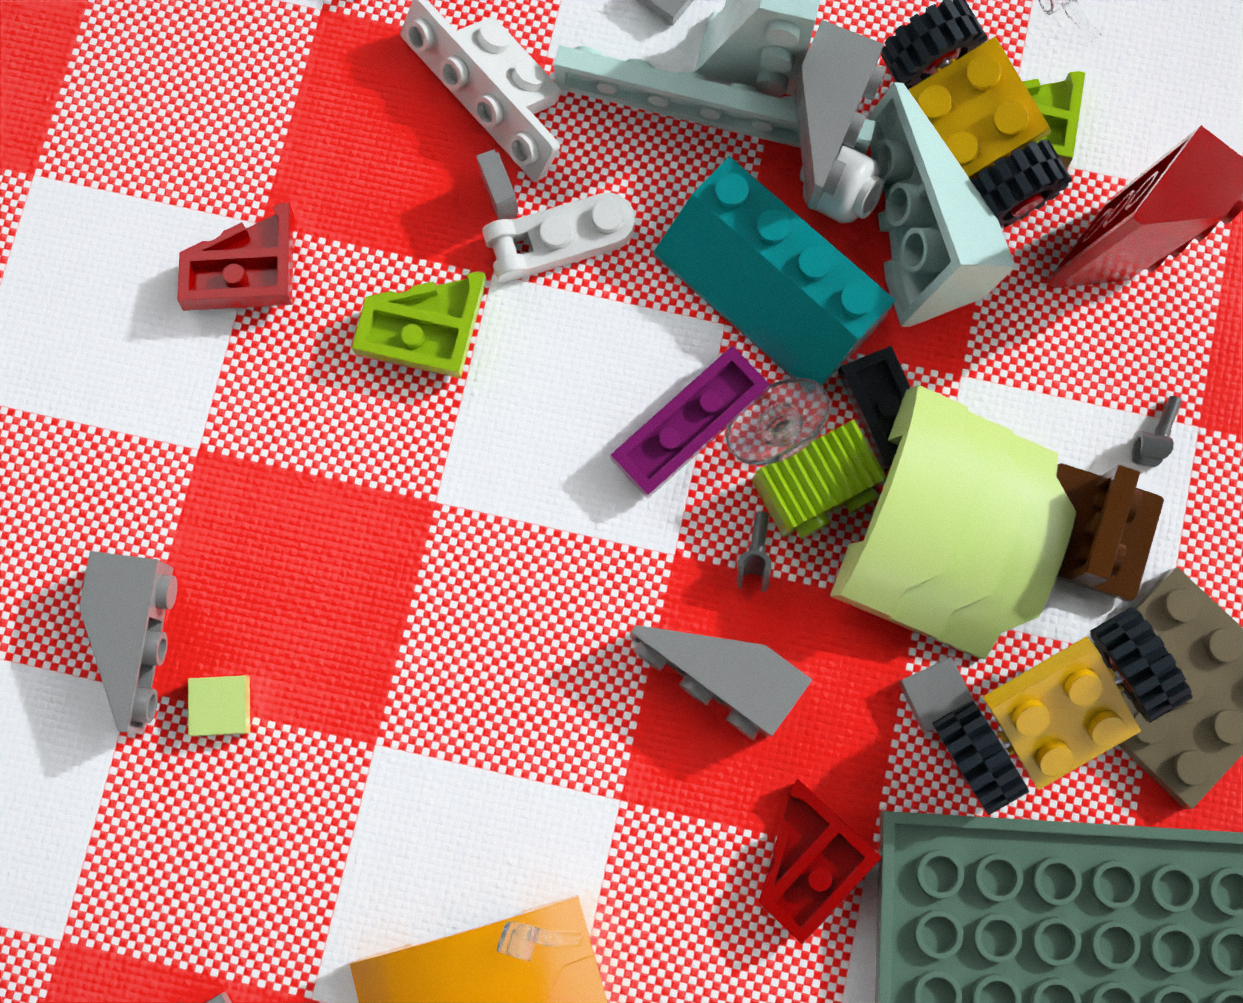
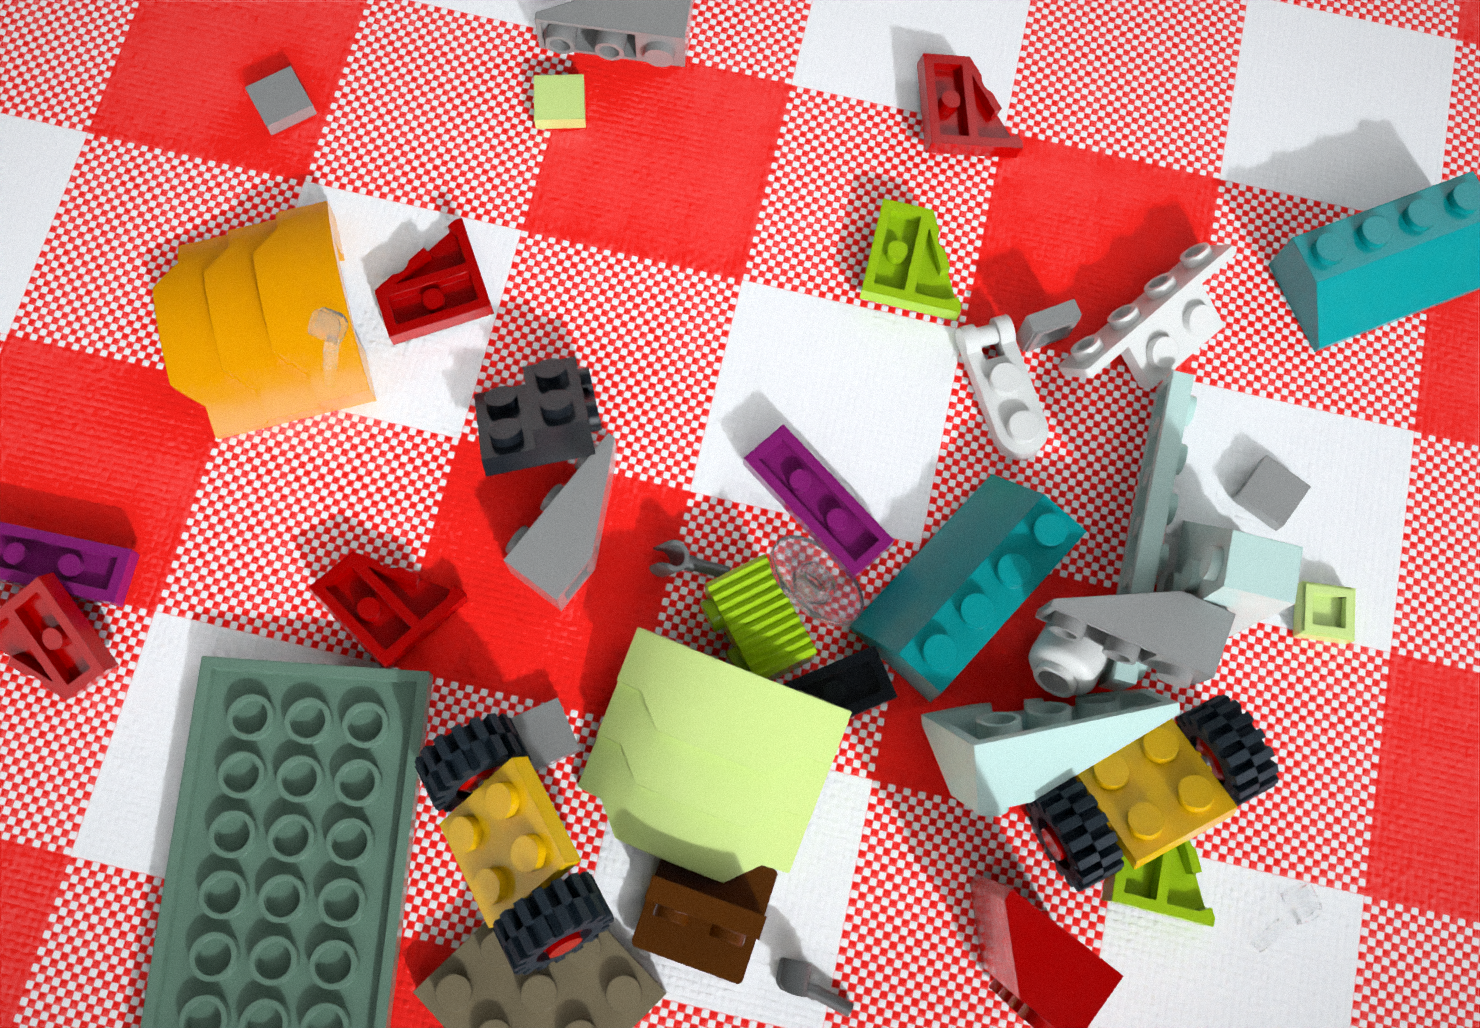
camera: 85 degrees right, 5 degrees down
(453, 833) = (435, 289): none -> red wing
(612, 709) = (540, 420): none -> black plate

